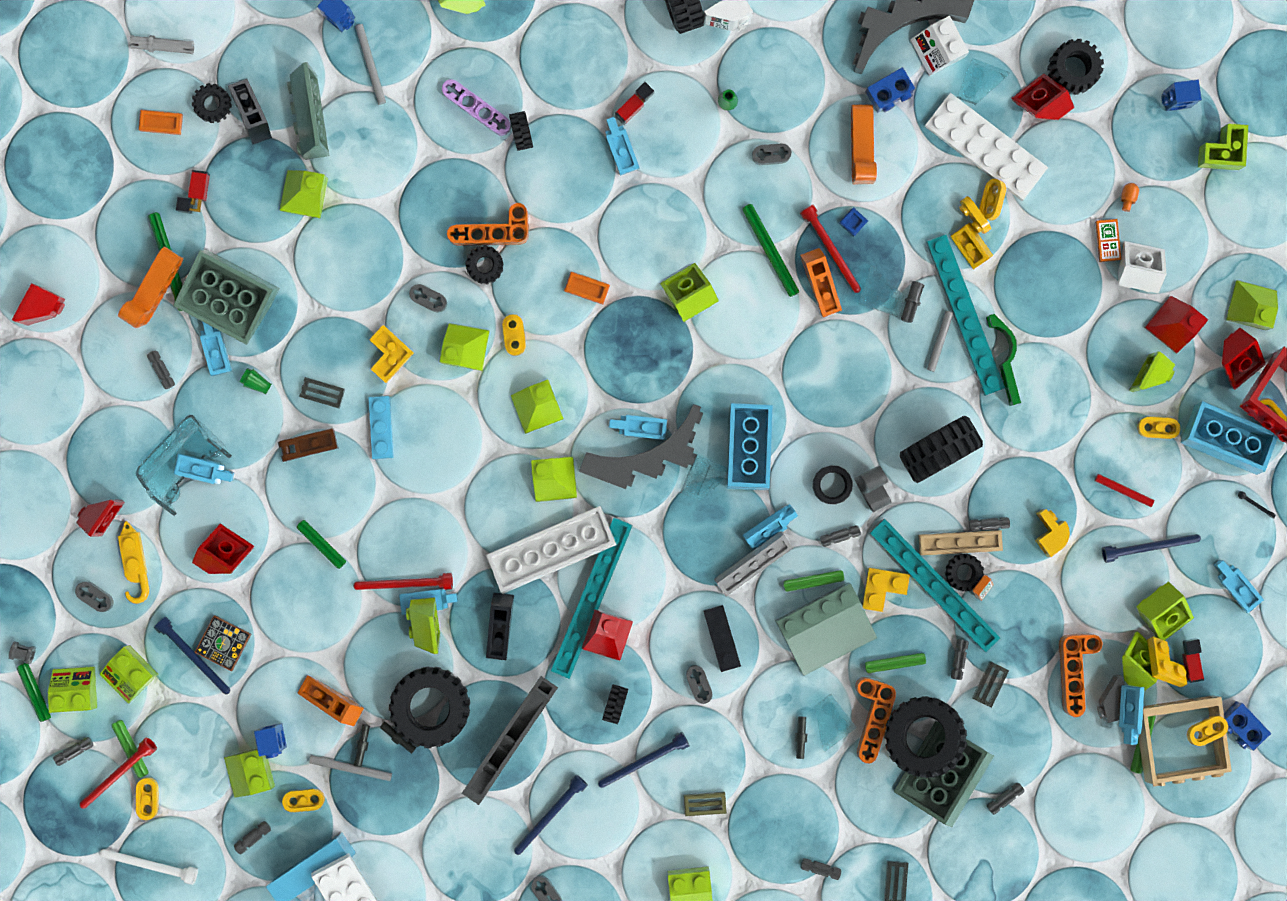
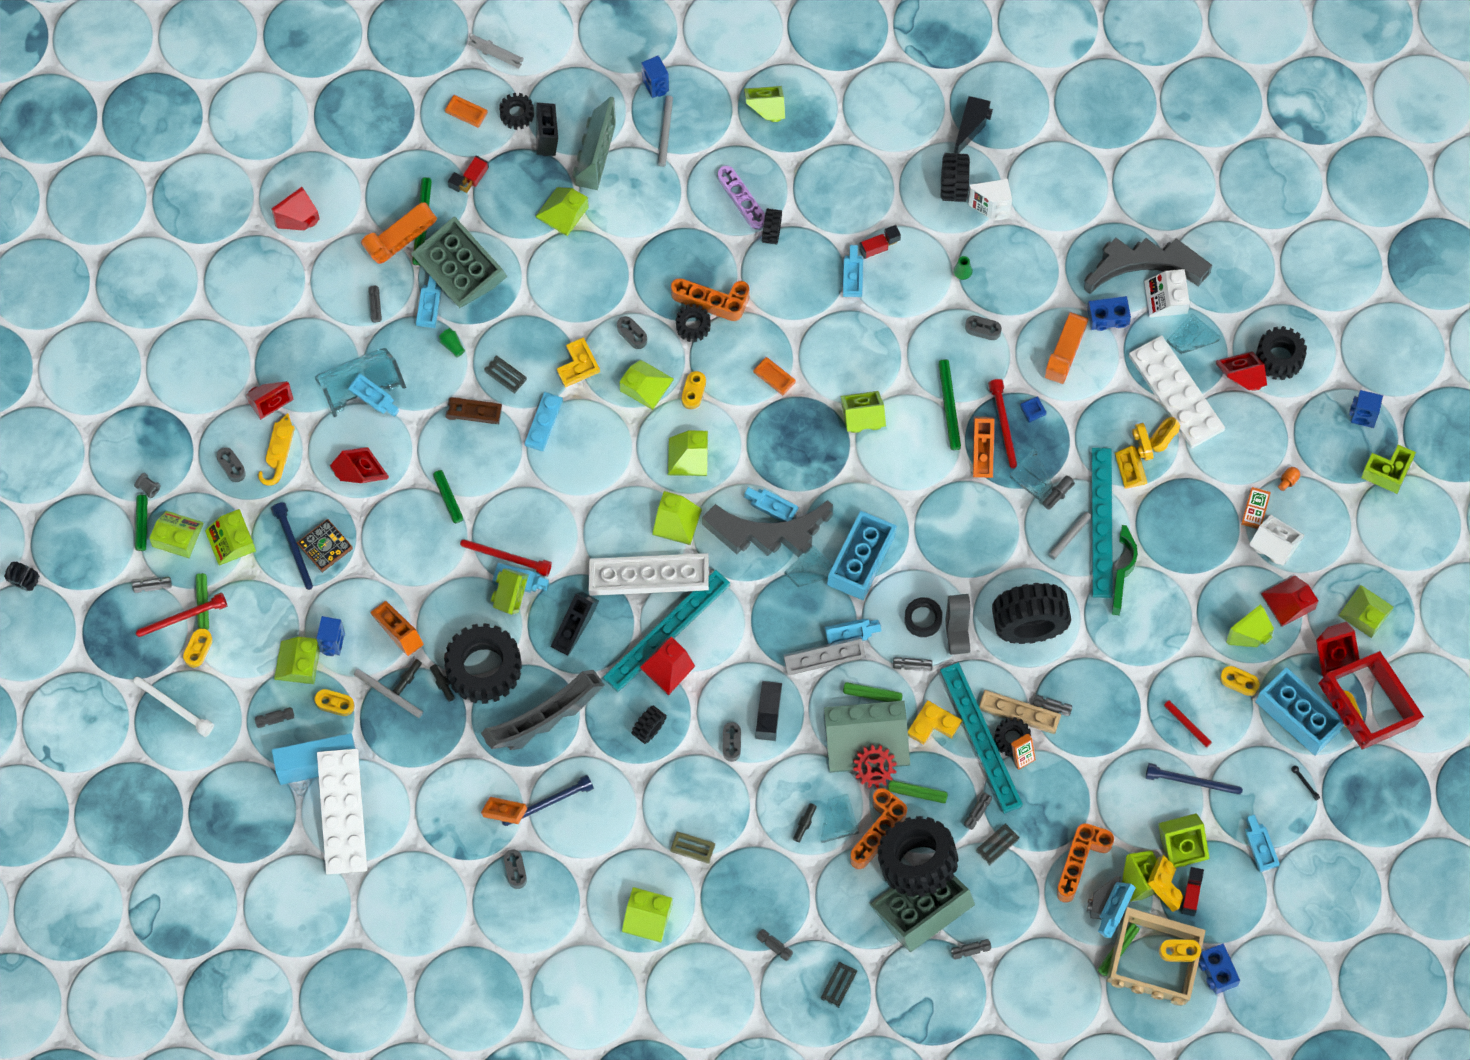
camera: 25 degrees right, 20 degrees down
(512, 844) = (504, 810): none -> orange plate
(678, 743) = (691, 783): dark blue piece -> none
(846, 657) = (880, 758): none -> red gear
(1056, 536) = (1108, 737): yellow brick -> none

